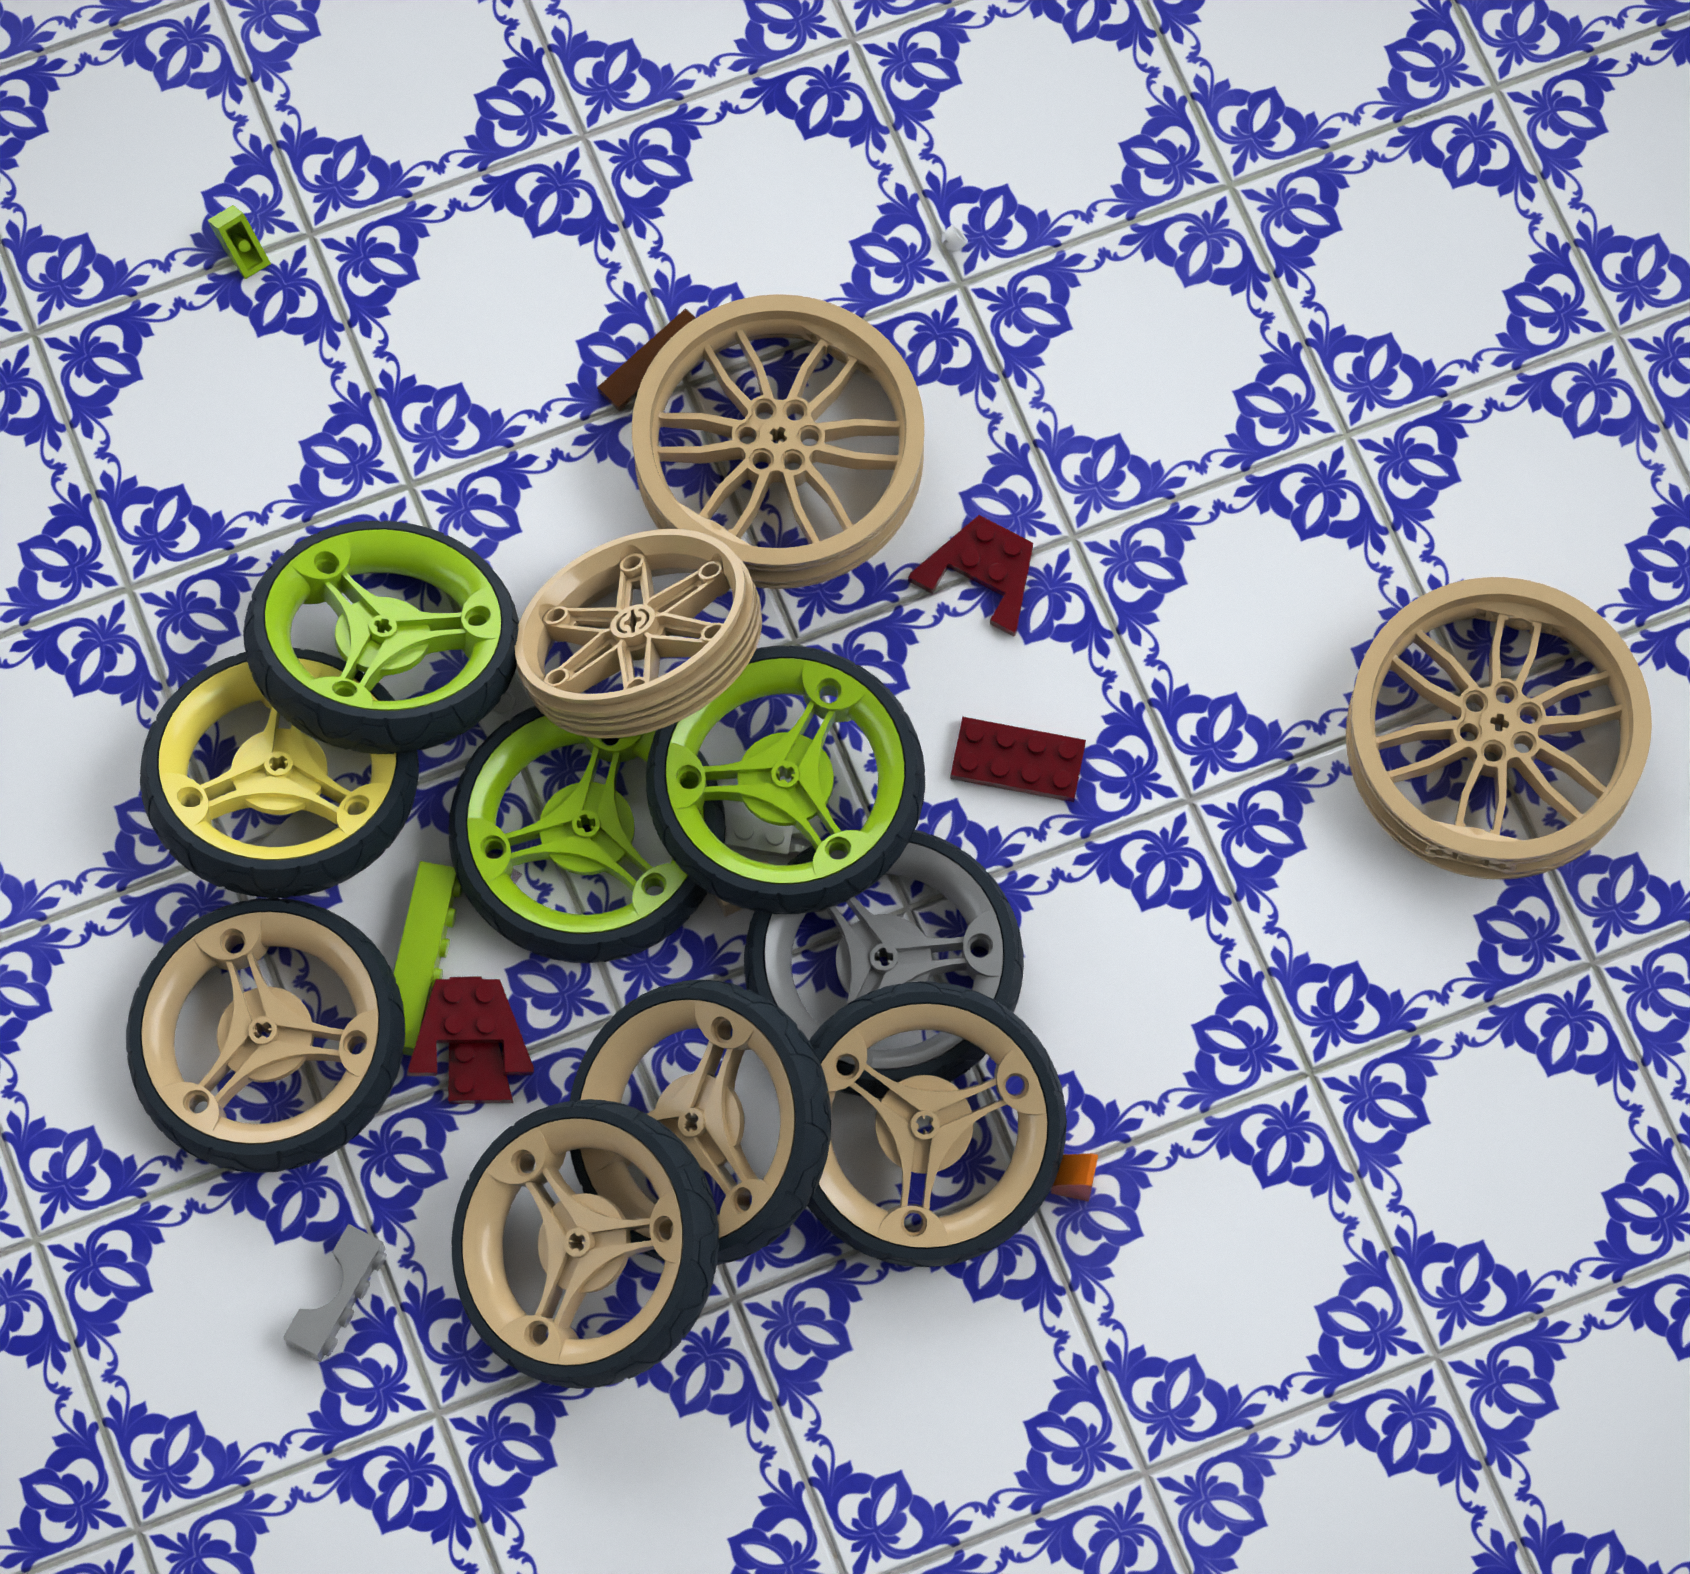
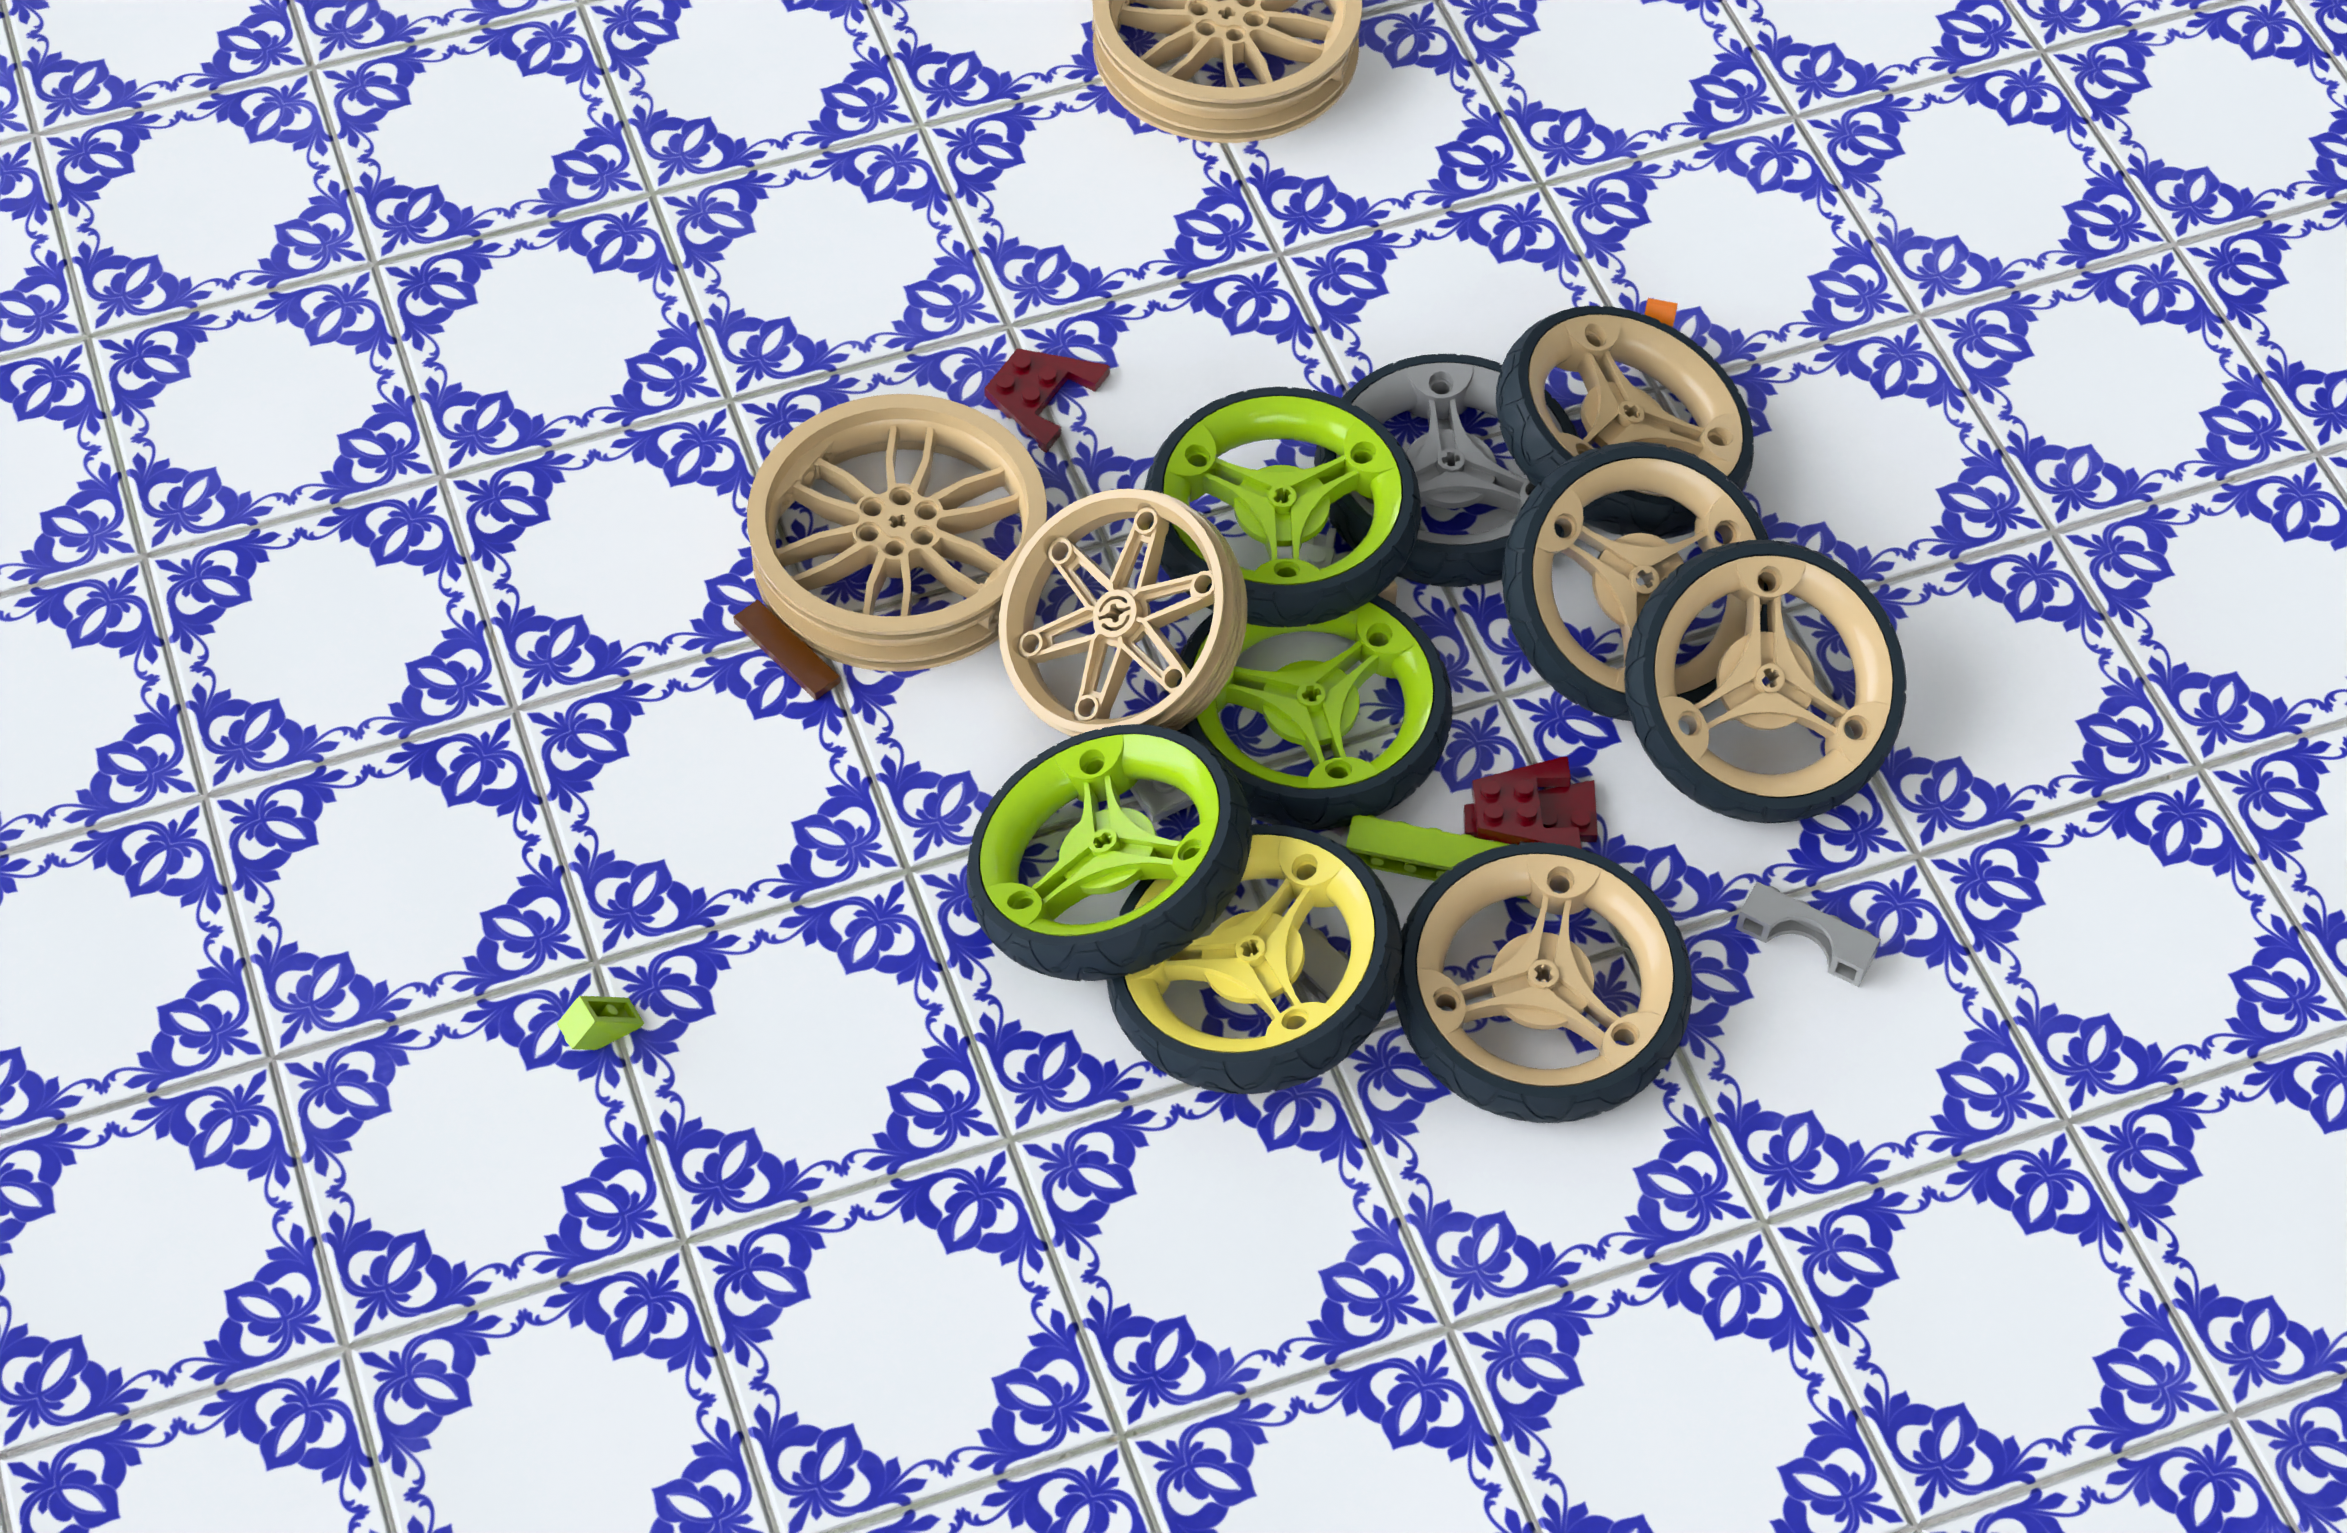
camera: 90 degrees left, 15 degrees down
(955, 238) = (683, 397): white hinge -> none
(1018, 759) = (1238, 360): dark red plate -> none

